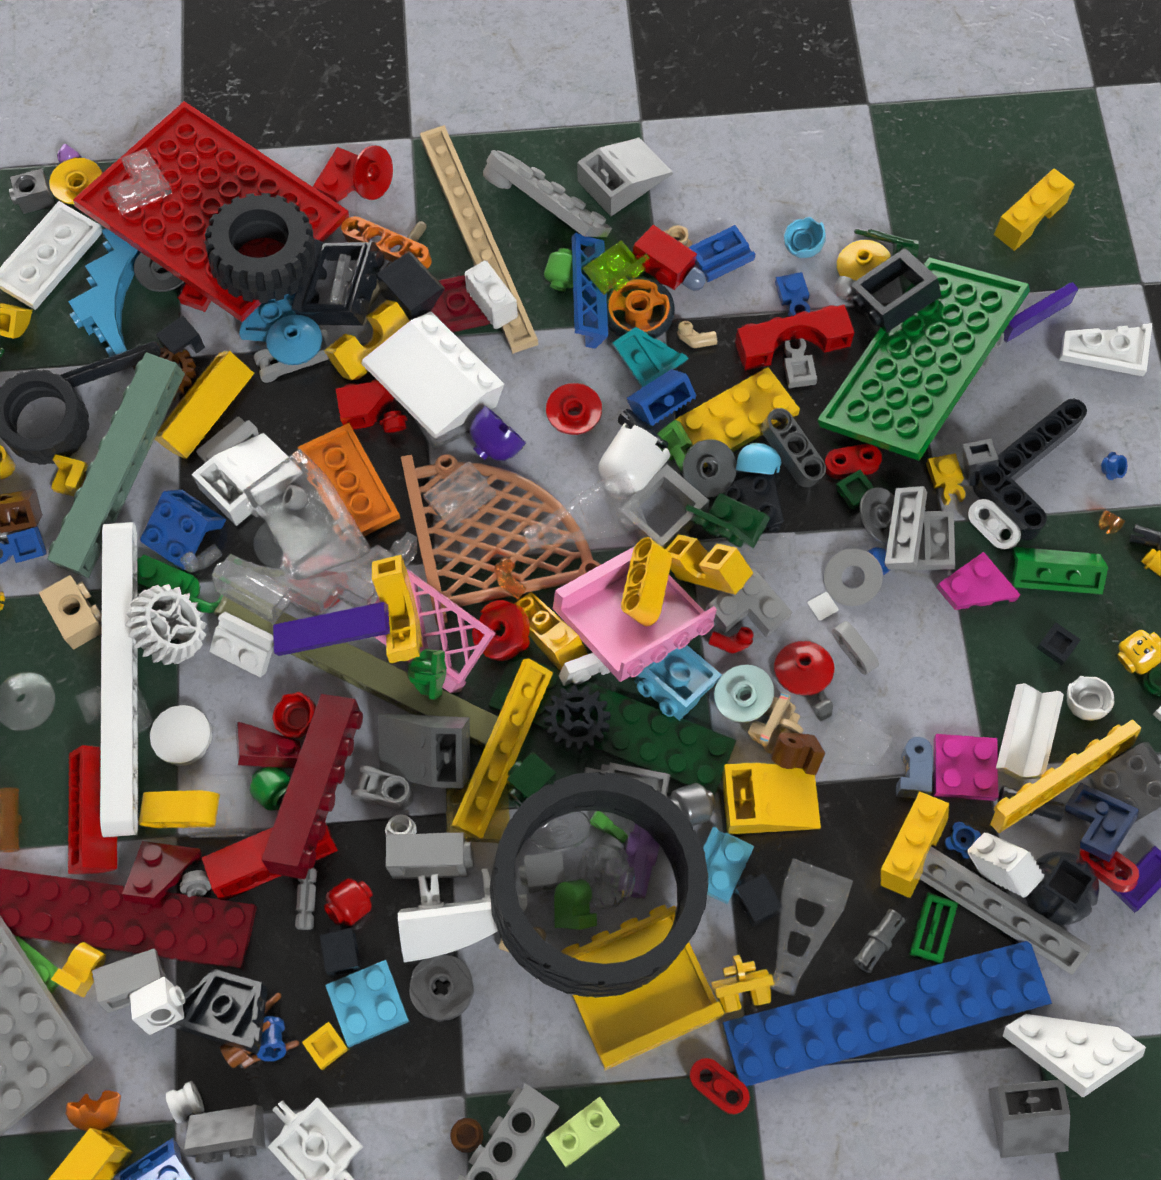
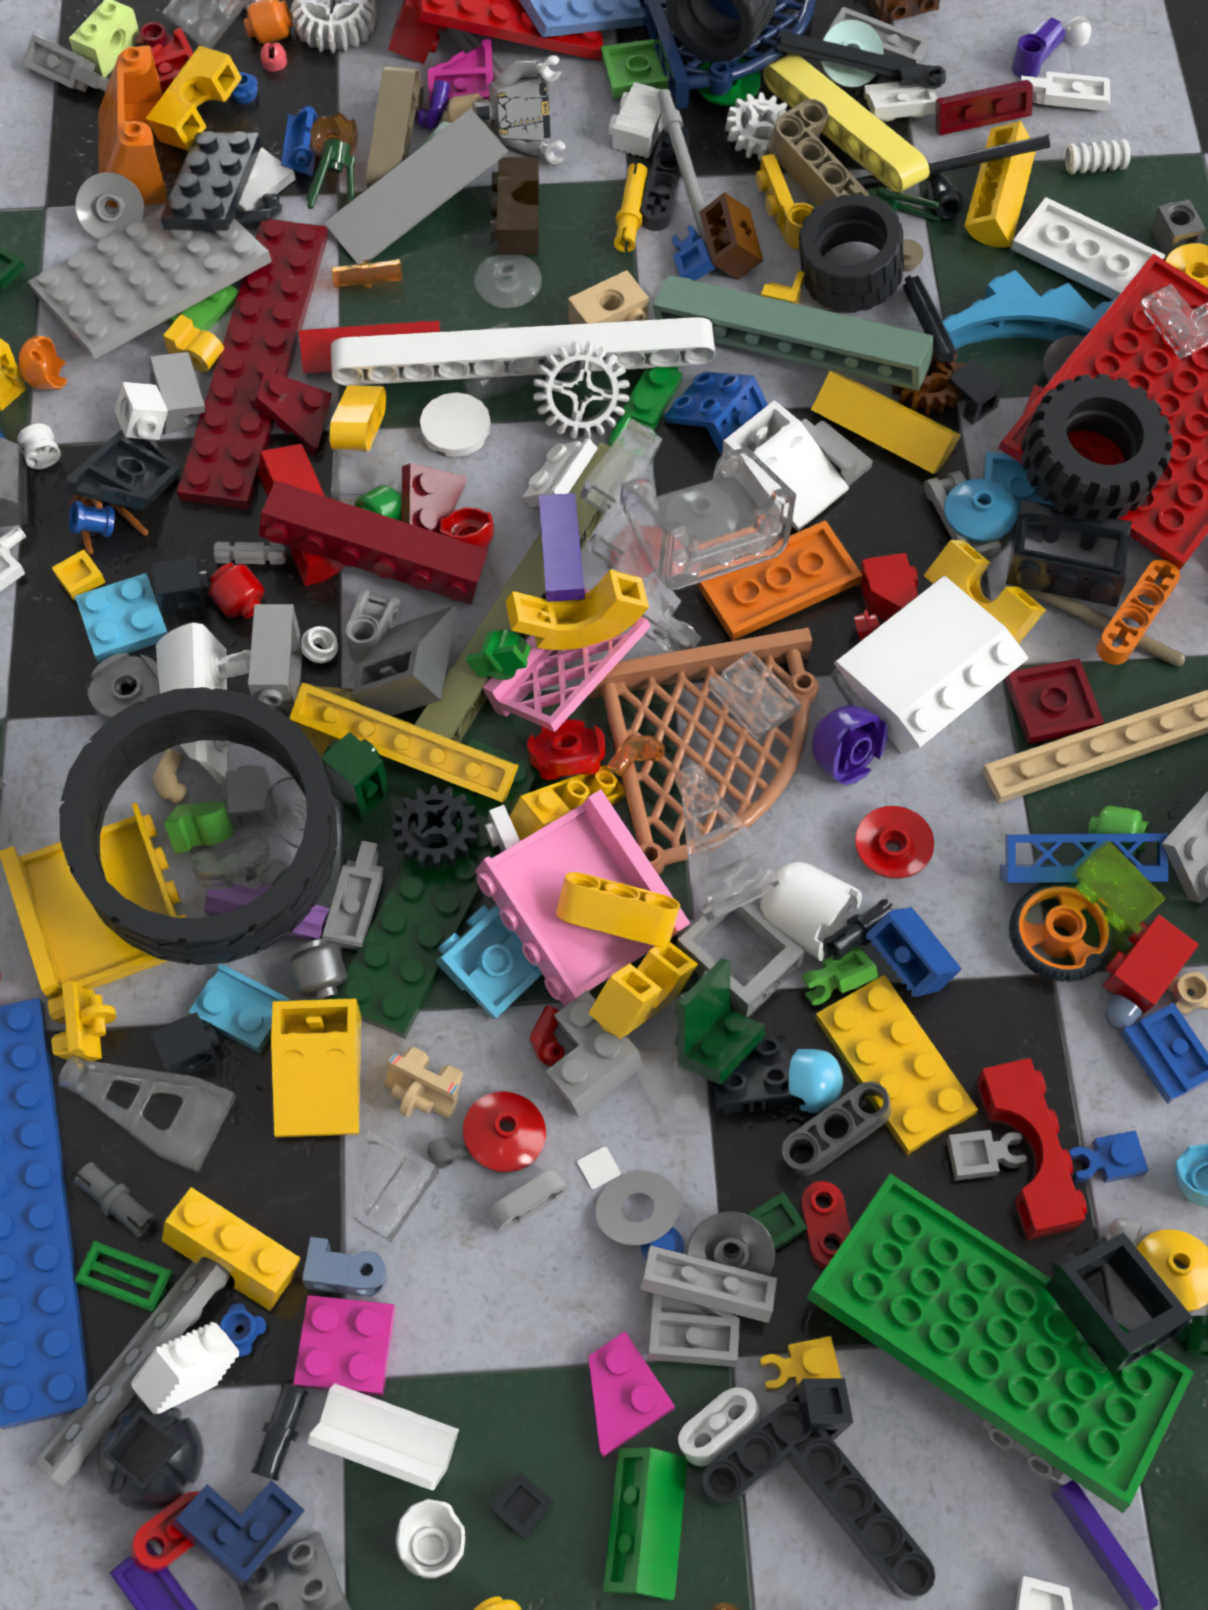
camera: 90 degrees right, 5 degrees down
(195, 883) = (275, 439): light grey plate -> none
(202, 561) = (672, 432): clear arm -> none
(294, 498) = (742, 508): light grey hinge -> none
(341, 280) = (1059, 543): clear wing -> none
(410, 285) = (1064, 631): black slope -> none
(491, 294) = (1059, 728): white brick -> none
(646, 356) = (982, 937): teal wing -> none
(694, 339) = (1022, 1008): tan arm -> none
(720, 467) = (784, 1010): dark grey dish -> none
(737, 683) = (466, 1031): light aqua dish -> none
(798, 751) = (375, 1101): reddish brown leg -> none
(1069, 773) = (315, 1491): yellow plate -> none

